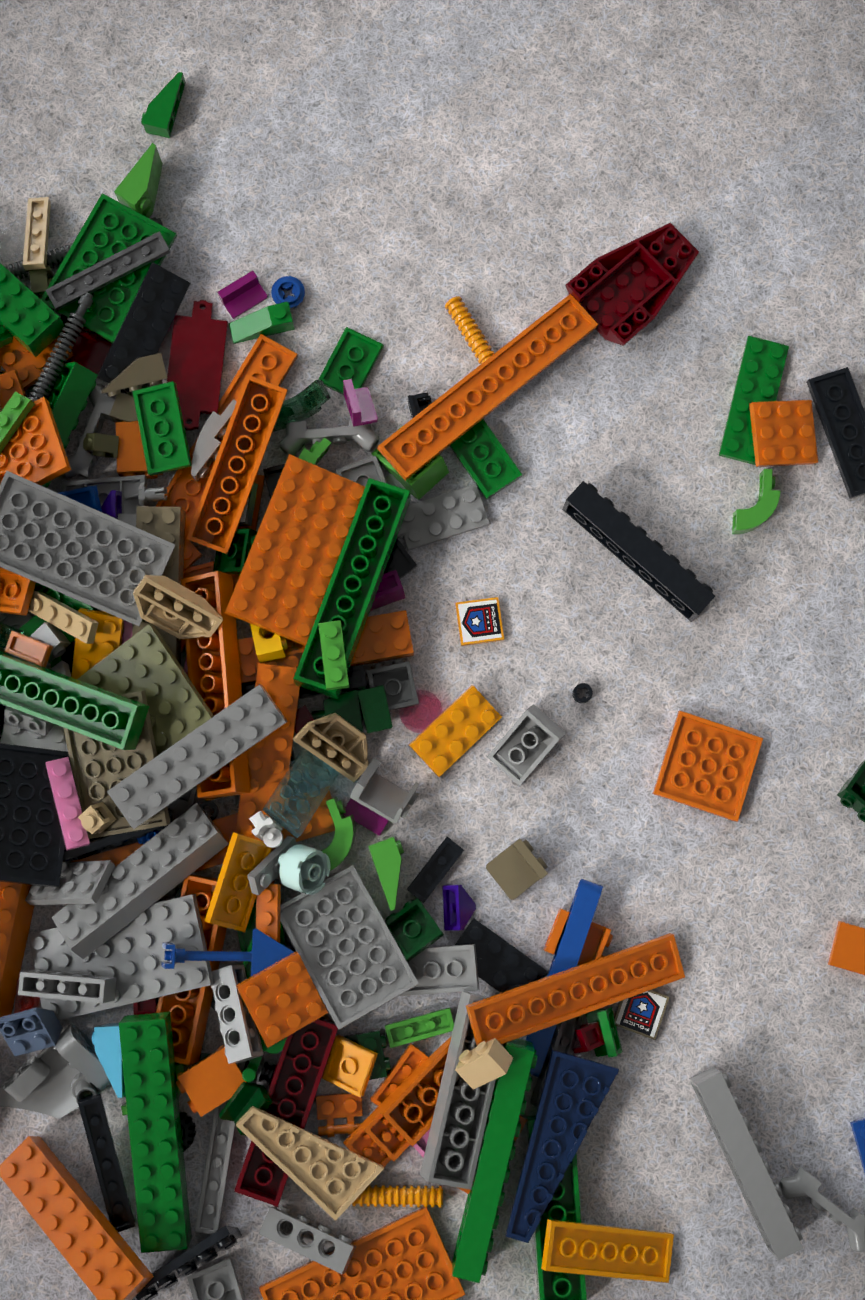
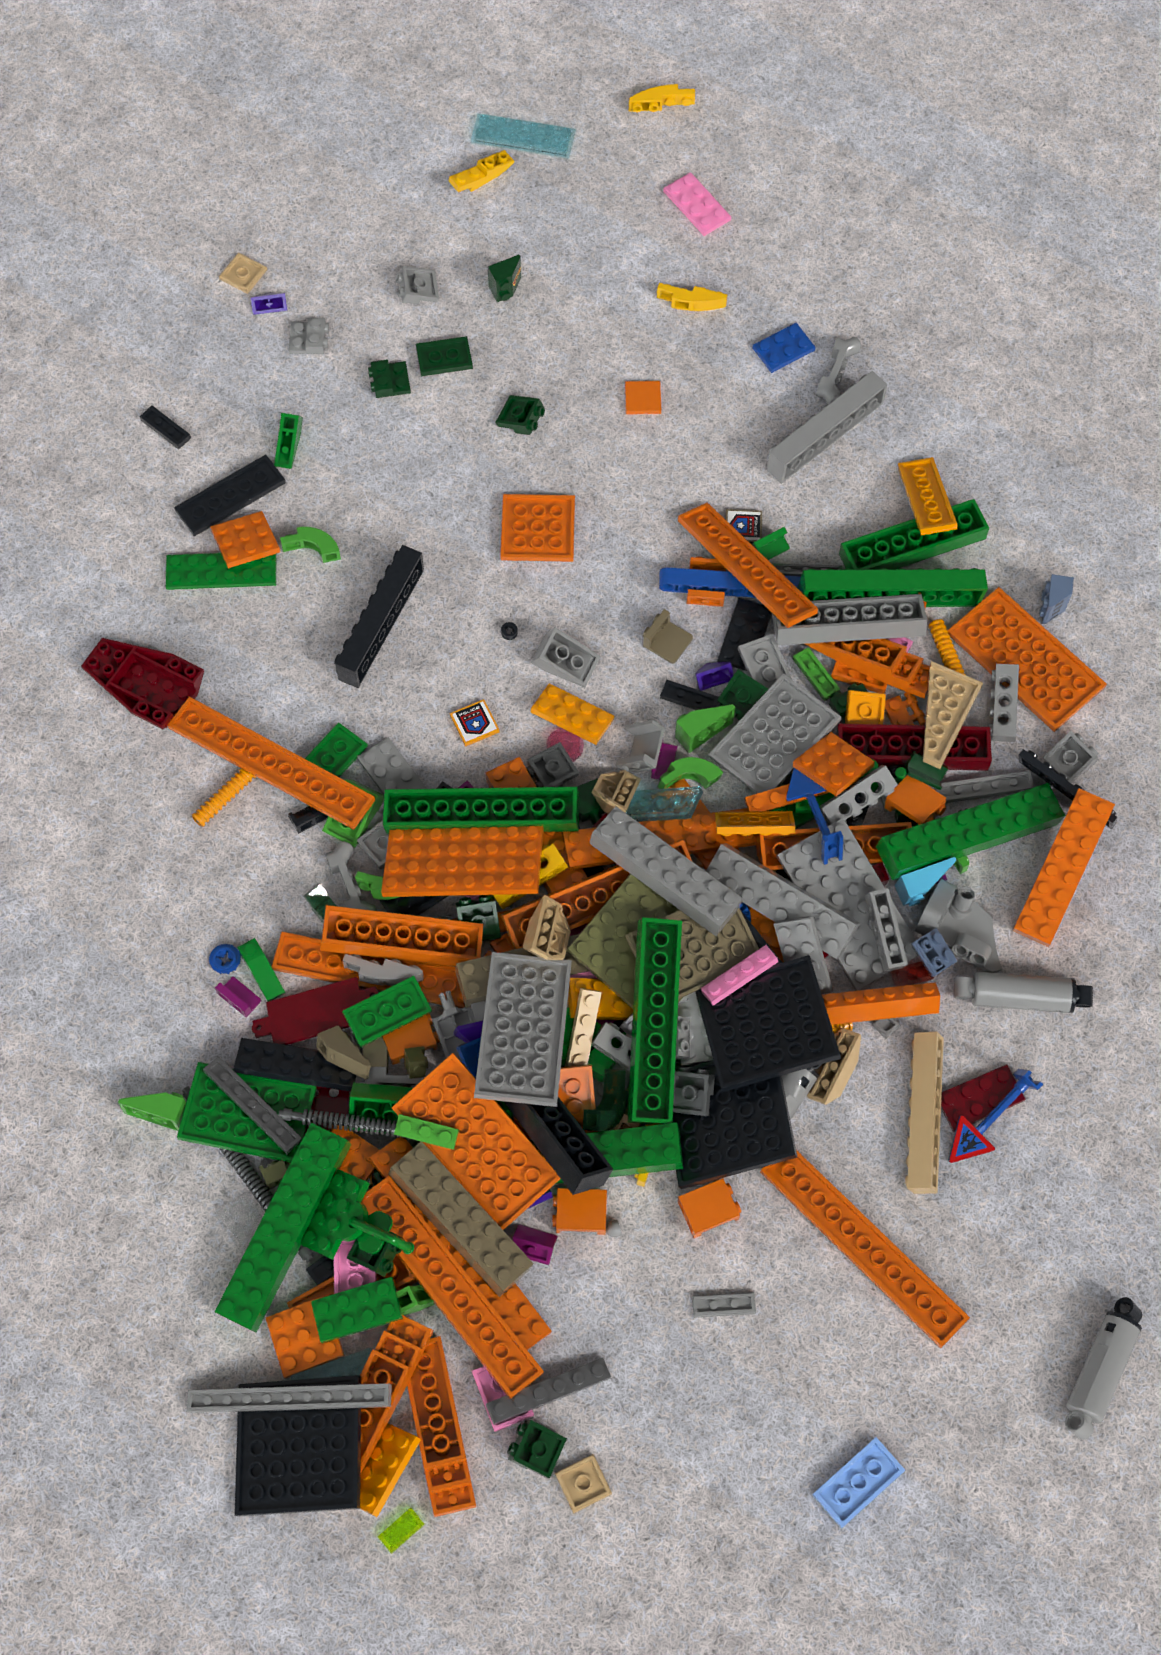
camera: 105 degrees left, 15 degrees down
(28, 648) = (620, 1049): orange tile -> none
(36, 233) = (228, 1190): tan plate -> none
(93, 821) = (743, 944): tan brick -> none
(106, 1162) = (1007, 865): black plate -> none
(164, 107) = (77, 1121): green slope -> none
(267, 830) = (705, 813): white hips -> none
(269, 867) = (731, 806): light grey plate -> none
(304, 869) = (725, 782): light aqua brick -> none
(333, 655) = (546, 797): bright green plate -> none
(352, 360) = (276, 888): green tile -> none
(359, 404) = (315, 863): panel -> none
(374, 708) = (576, 773): dark green panel -> none
(483, 1063) = (826, 599): tan brick -> none
(564, 1113) = (843, 548): dark blue wing -> none
(589, 1037) = (777, 551): dark red panel -> none

